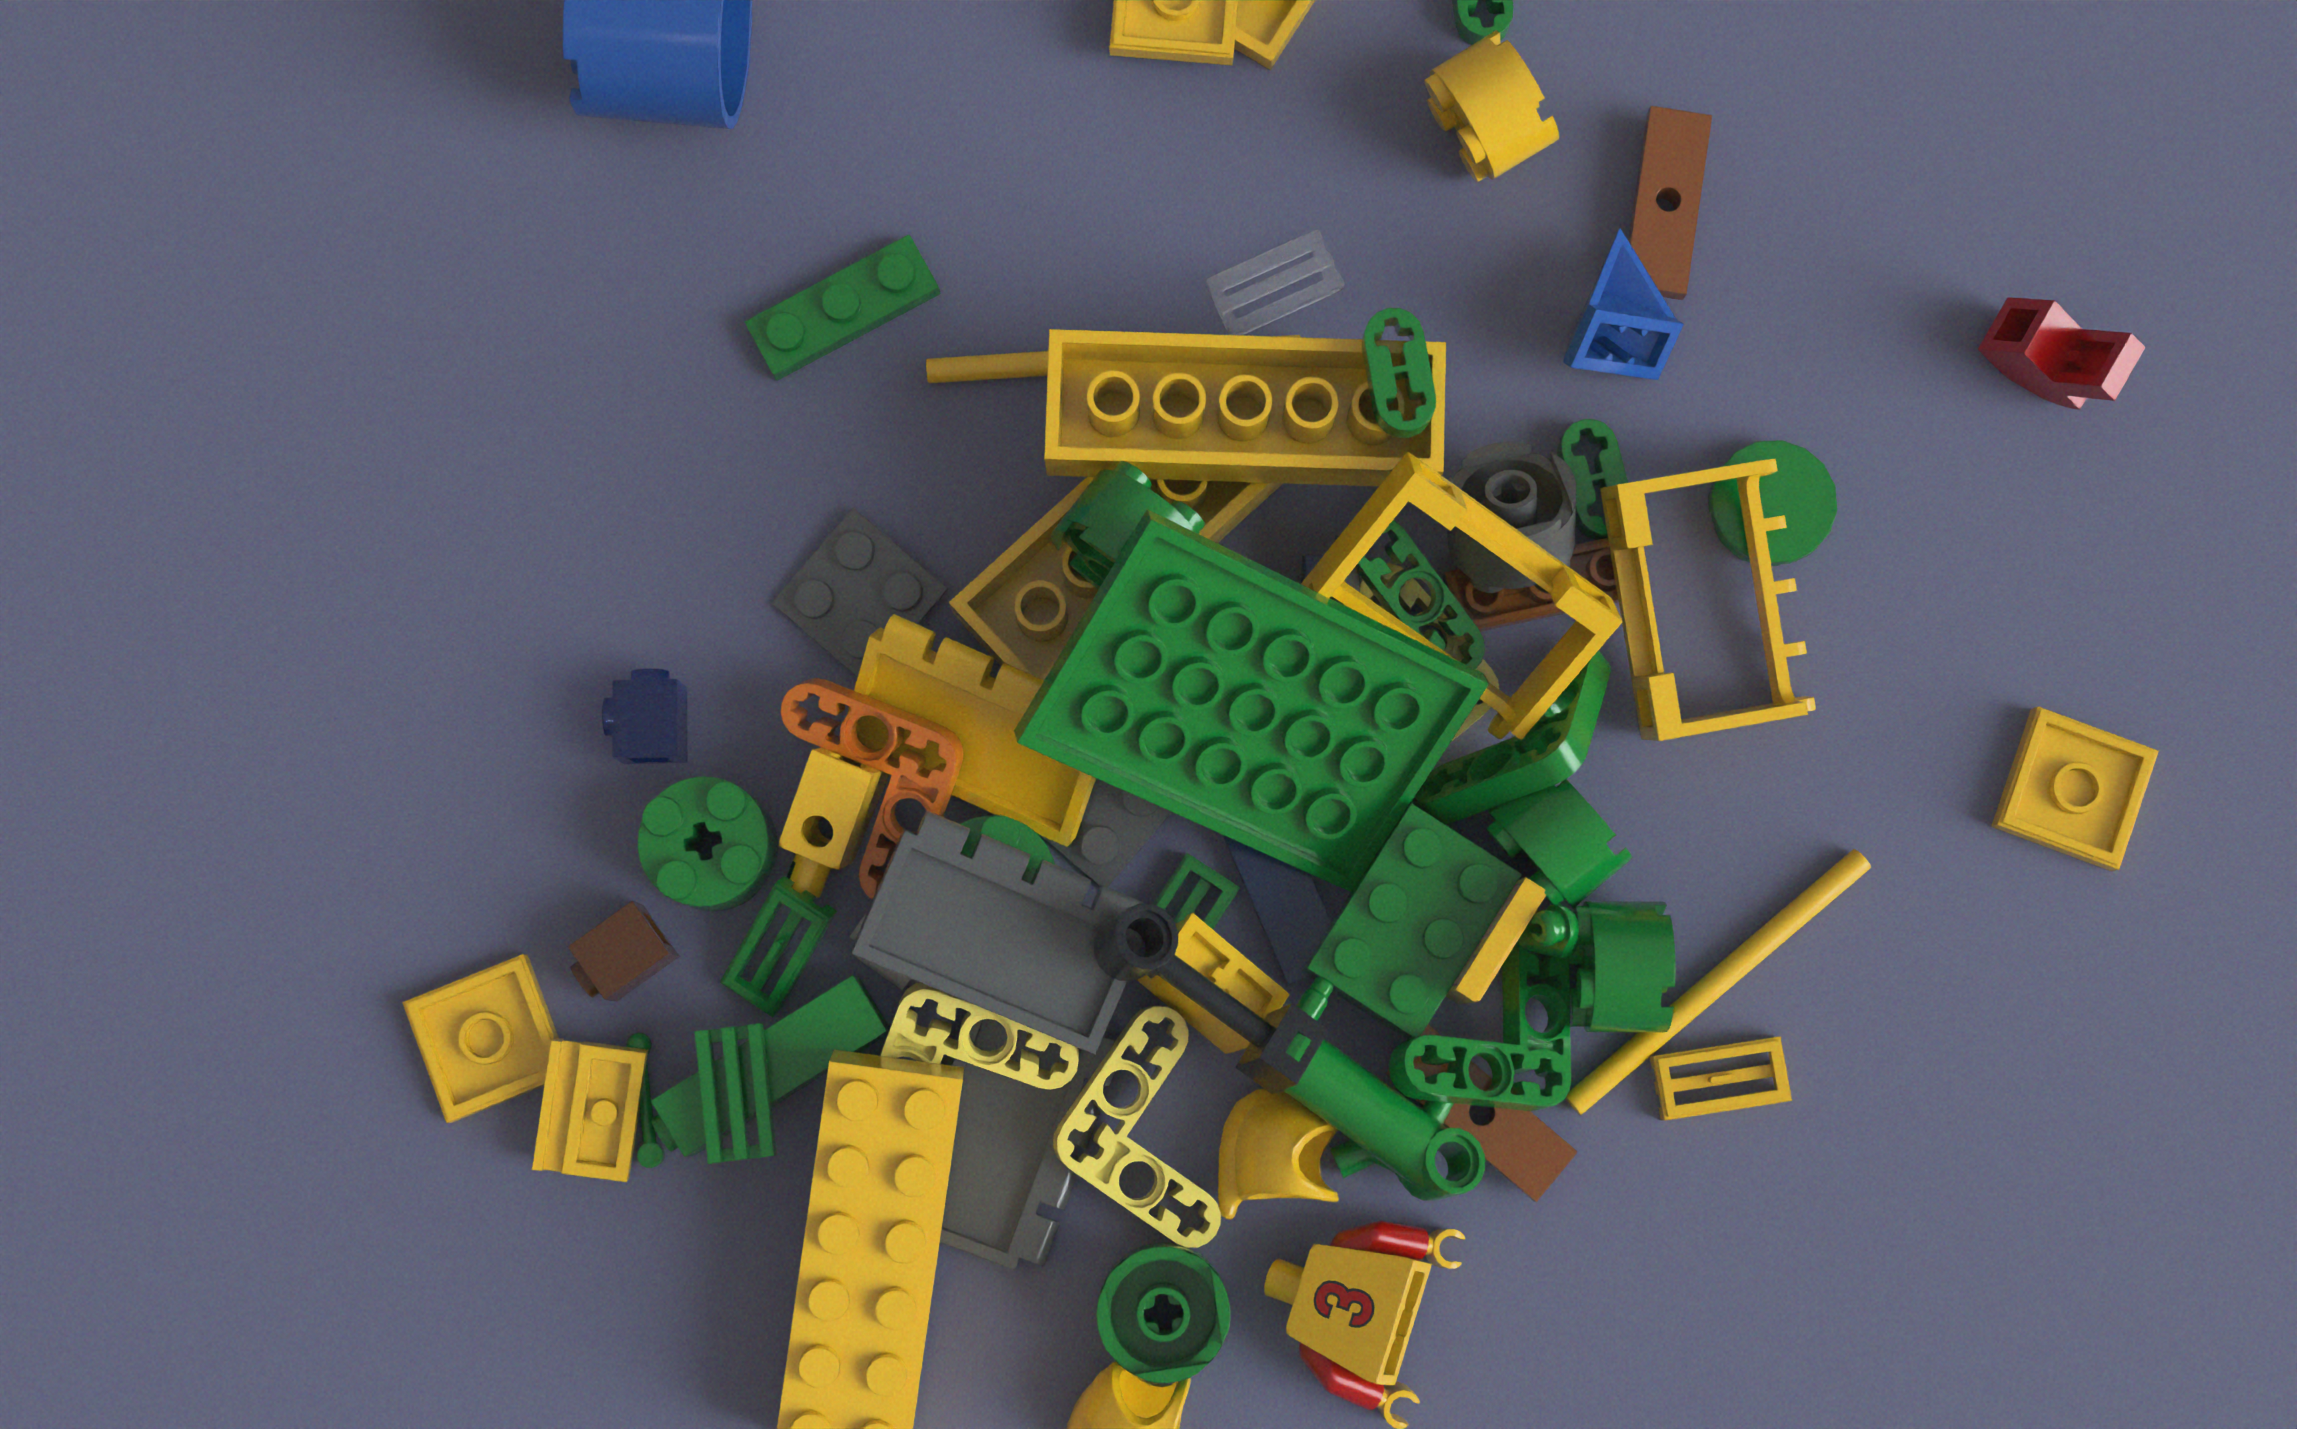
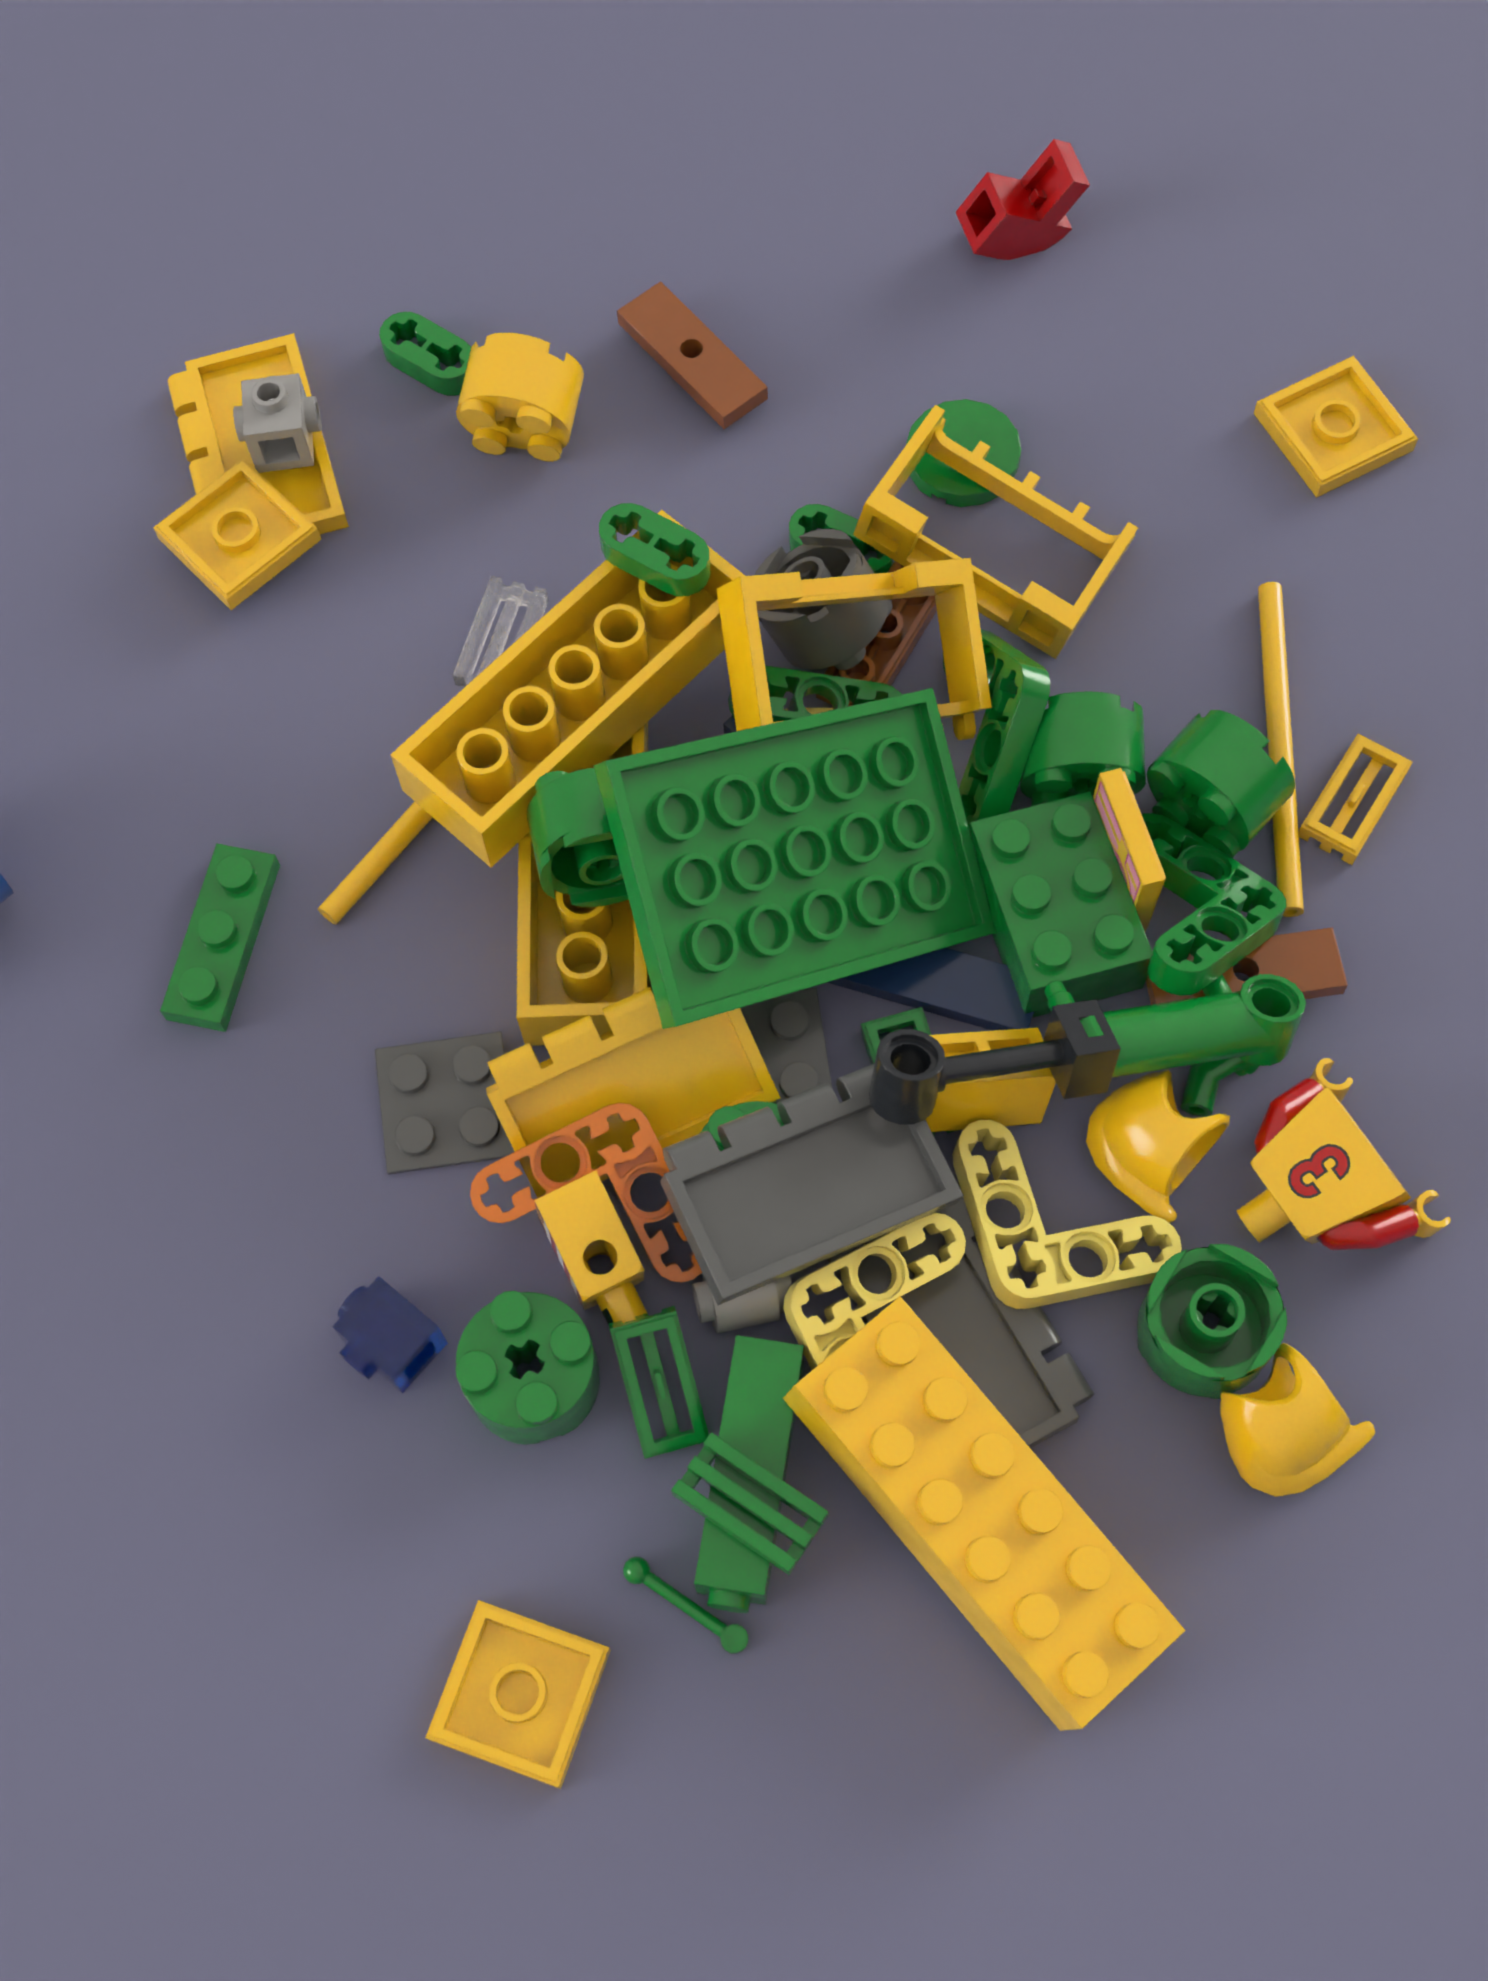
camera: 45 degrees left, 15 degrees down
(590, 1109) = (655, 1650): yellow plate -> none
(621, 953) = (551, 1514): reddish brown brick -> none
(1551, 932) = (1159, 795): green arm -> none
(1624, 321) = (745, 435): blue slope -> none

